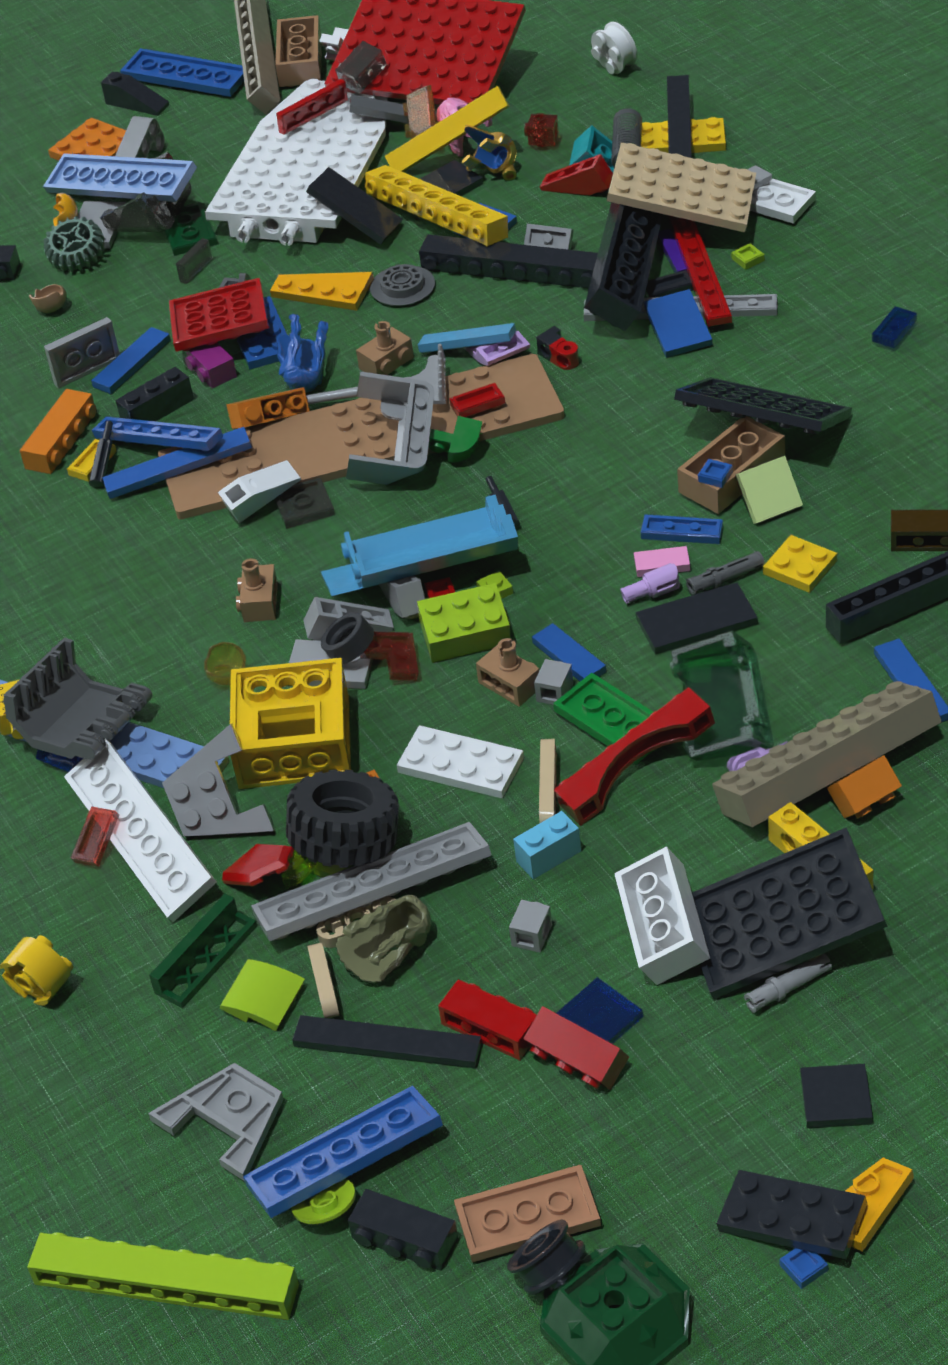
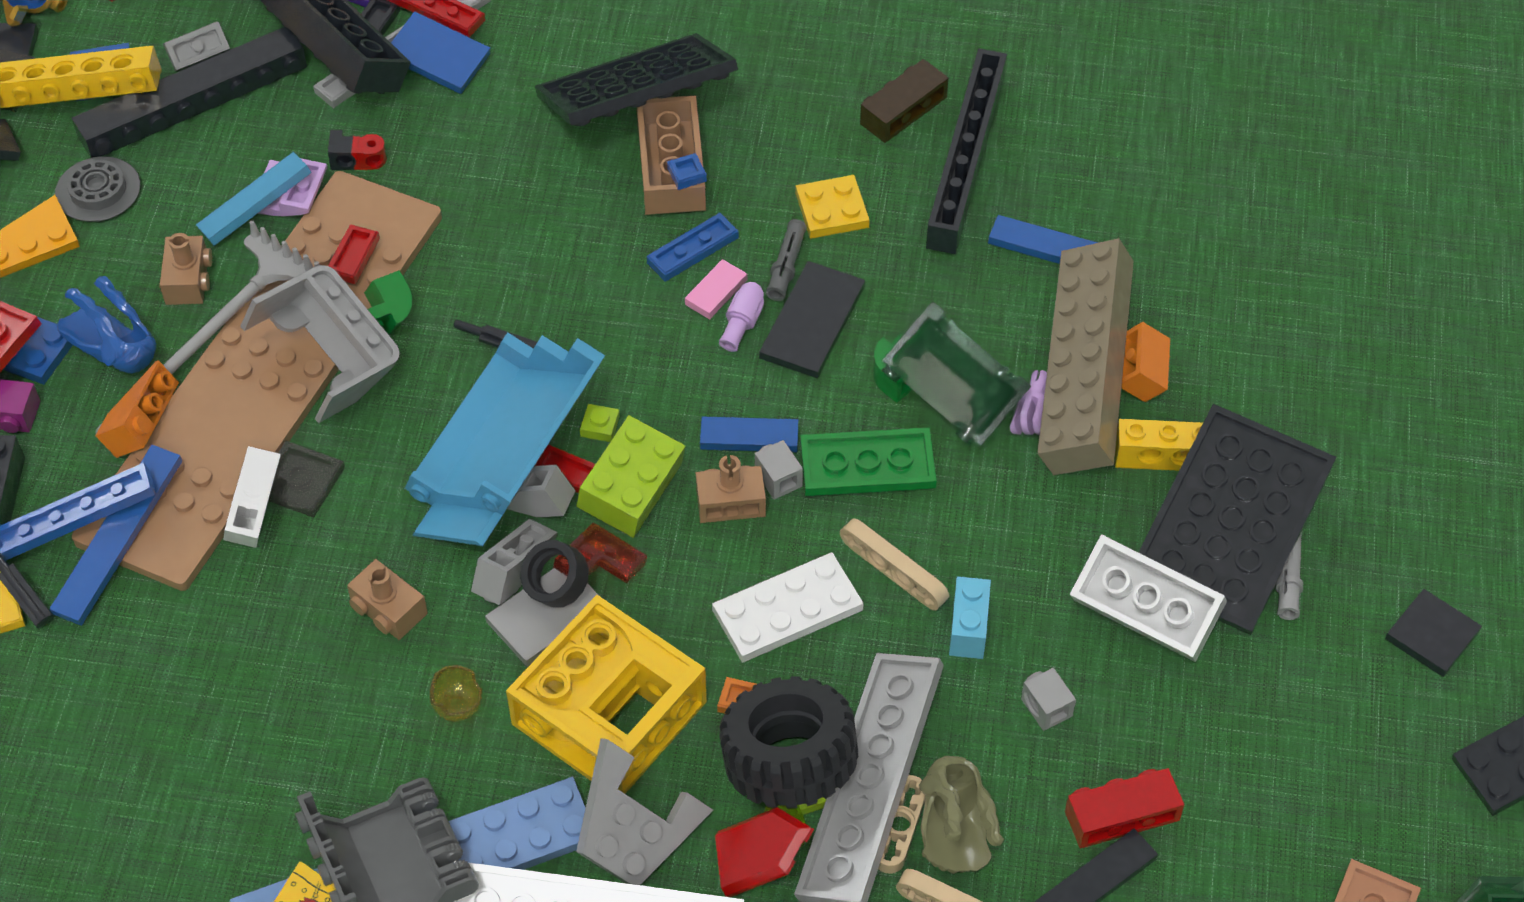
camera: 55 degrees left, 10 degrees up
(575, 1049) = (1226, 769): red brick -> none
(602, 1011) = (1192, 727): clear blue tile -> none
(677, 721) = (940, 539): red arch -> none
(769, 489) = (734, 156): yellowish green tile -> none

